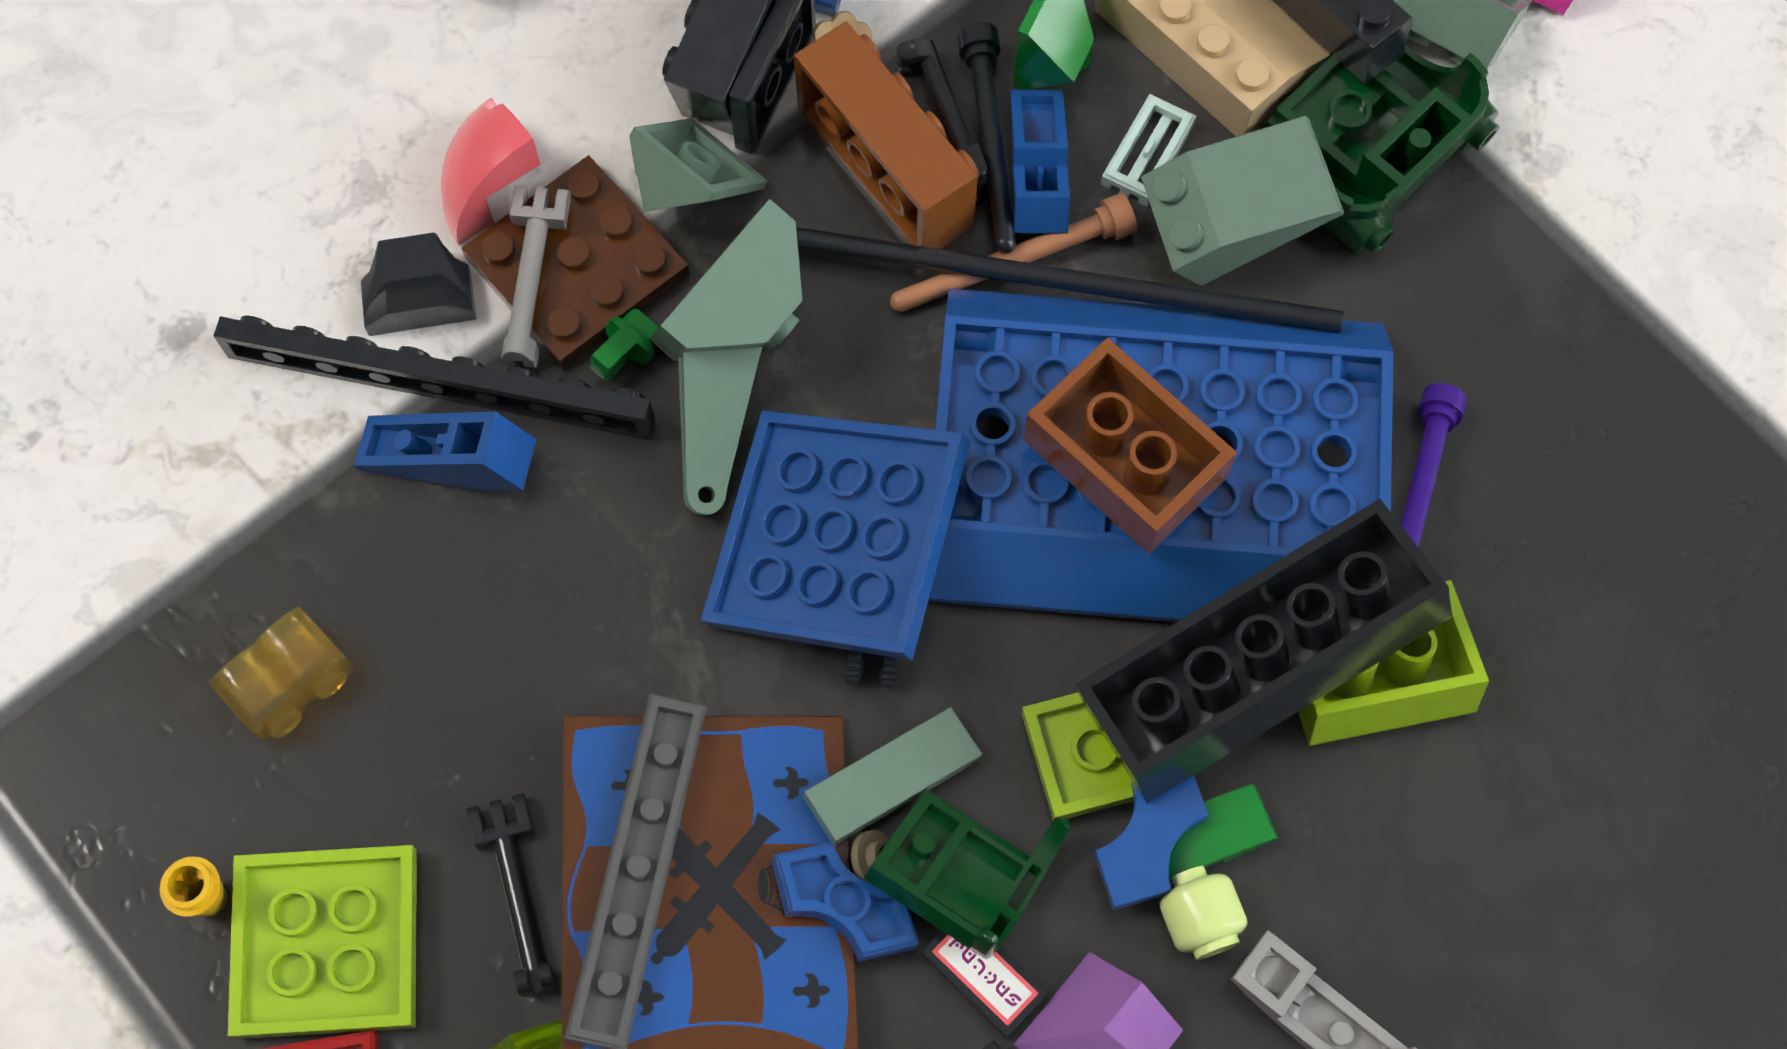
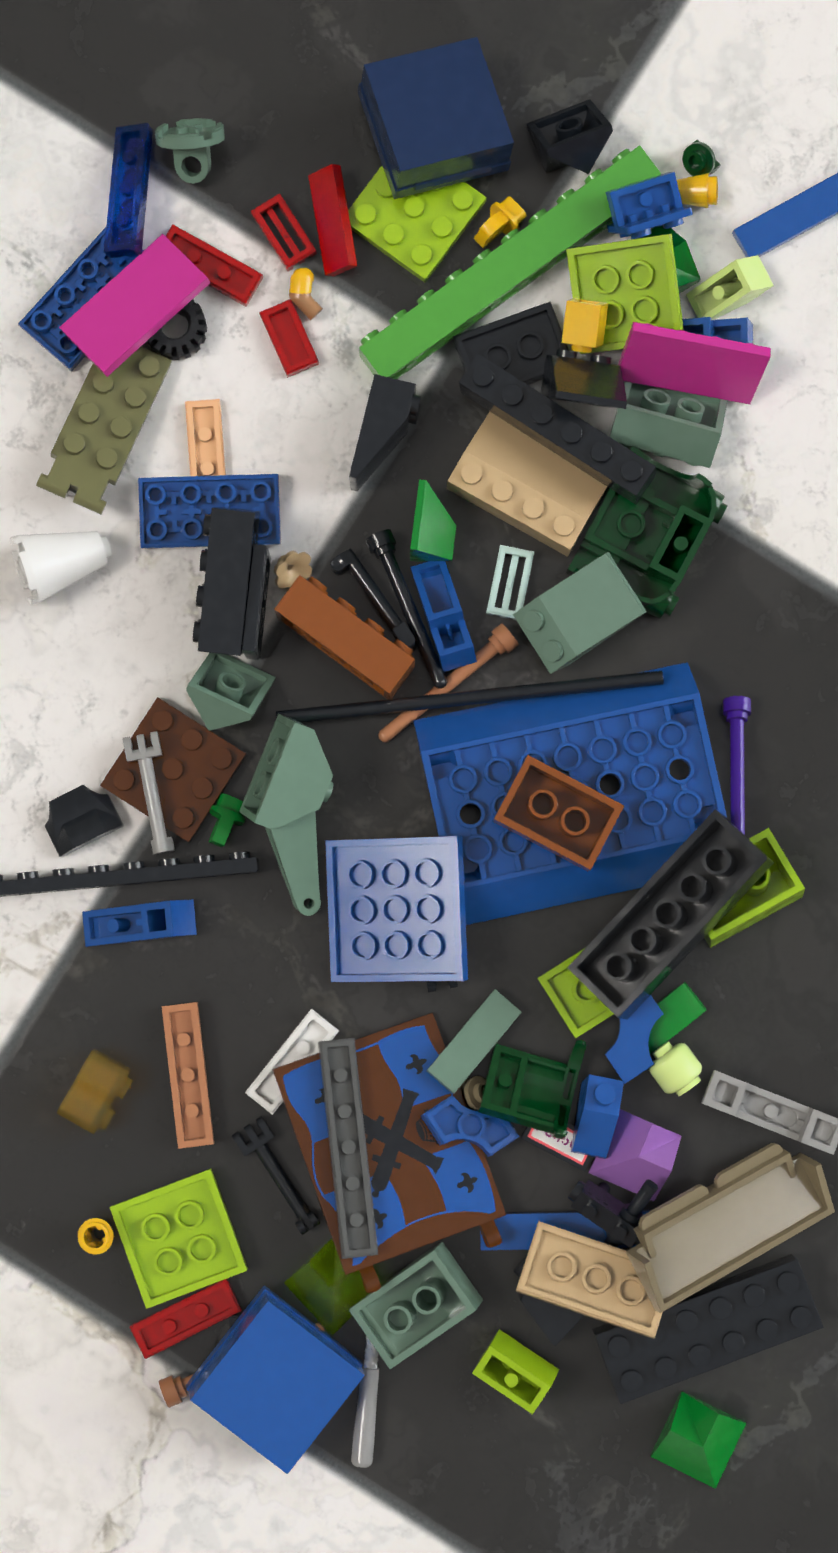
camera: 20 degrees left, 15 degrees up
(432, 695) = (188, 1075): none -> nougat plate
(482, 159) = (94, 728): coral brick -> none
(626, 696) = (299, 1045): none -> white tile
(1054, 947) = (596, 1115): none -> blue slope

